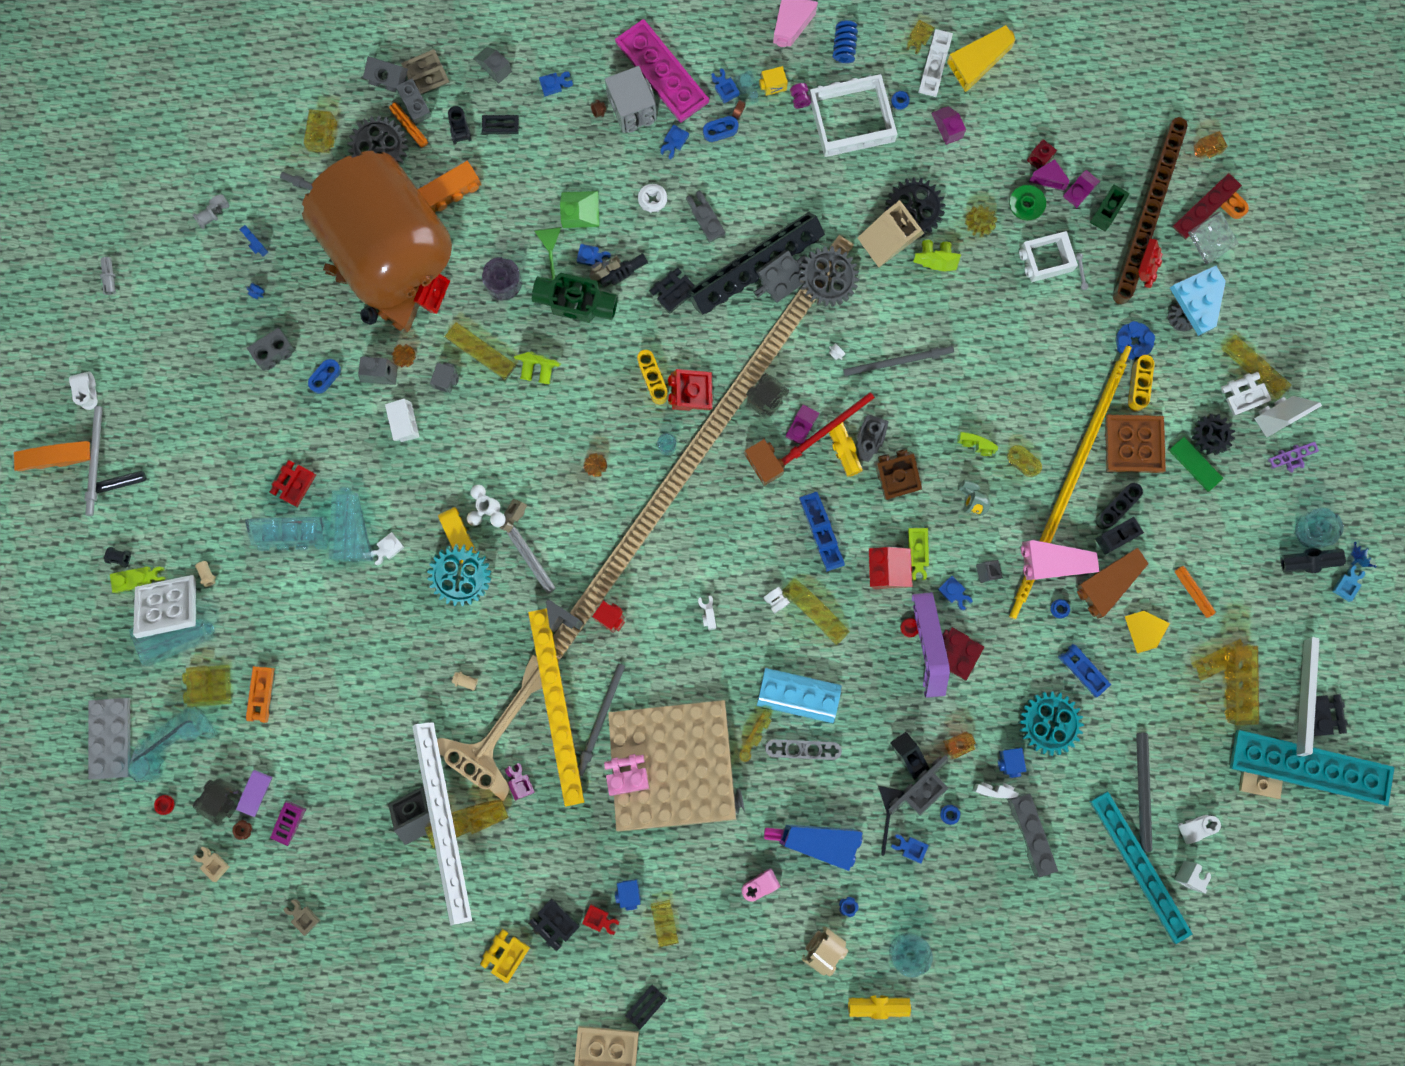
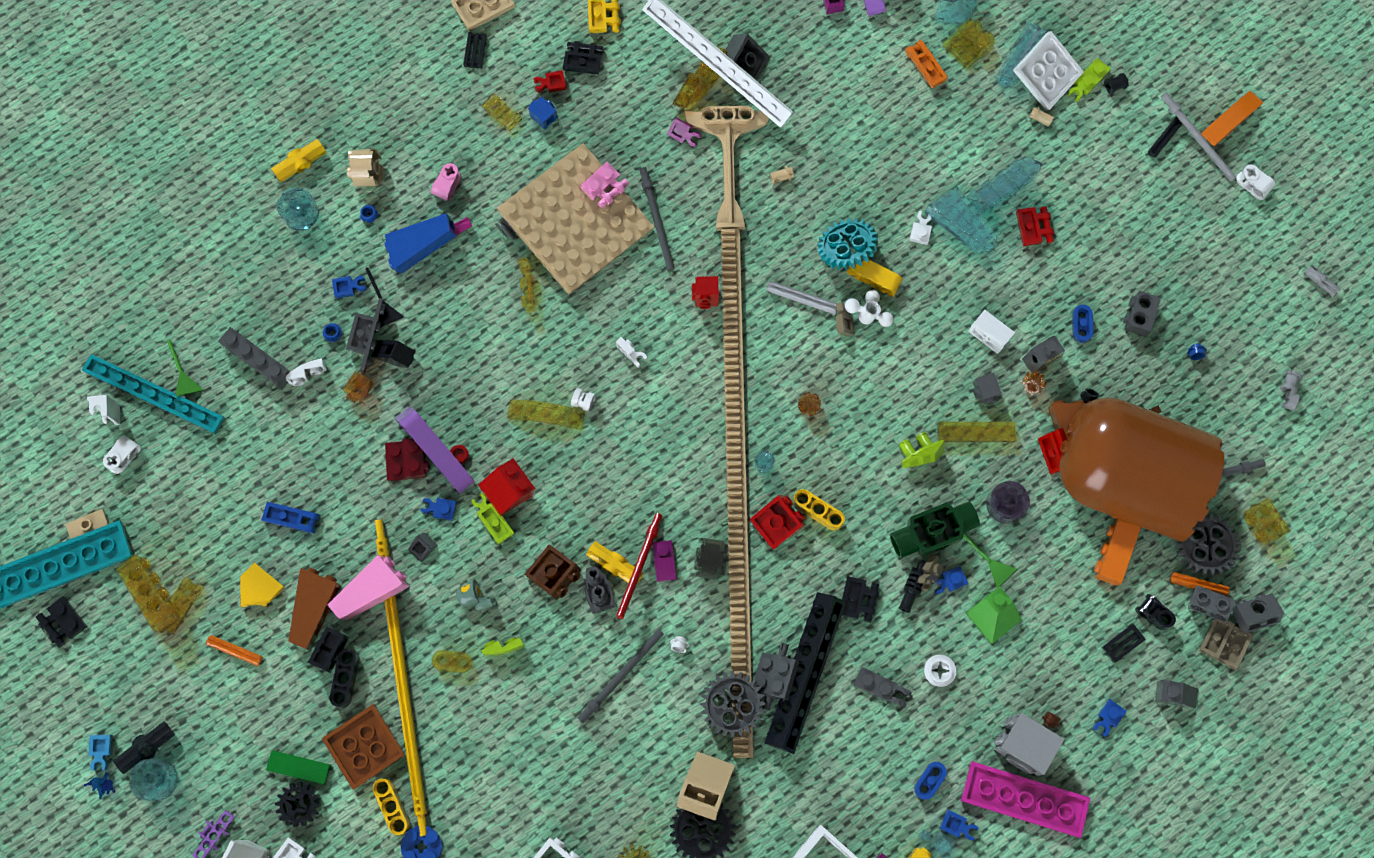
camera: 145 degrees right, 5 degrees down
(254, 244) = (1230, 388): blue plate -> none
(556, 708) = (697, 201): yellow plate -> none
(557, 615) = (748, 266): dark grey slope -> none
(675, 139) = (962, 742): blue plate -> none
(738, 109) = (928, 812): copper tile -> none
(764, 462) = (672, 502): dark orange brick -> none
(799, 695) = (513, 338): medium azure container -> none
(803, 746) = (483, 304): light grey beam -> none
(822, 531) = (585, 481): blue slope -> none
(938, 260) = (641, 796): lime connector -> none
(1012, 762) = (306, 403): blue brick -> none
(1034, 717) = (310, 449): teal gear -> none
(1066, 608) = (336, 555): blue plate -> none
(1106, 855) = (185, 383): none -> bright green piece
(1144, 791) = (183, 455): dark grey axle -> none
(1308, 697) = (85, 622): white tile -> none

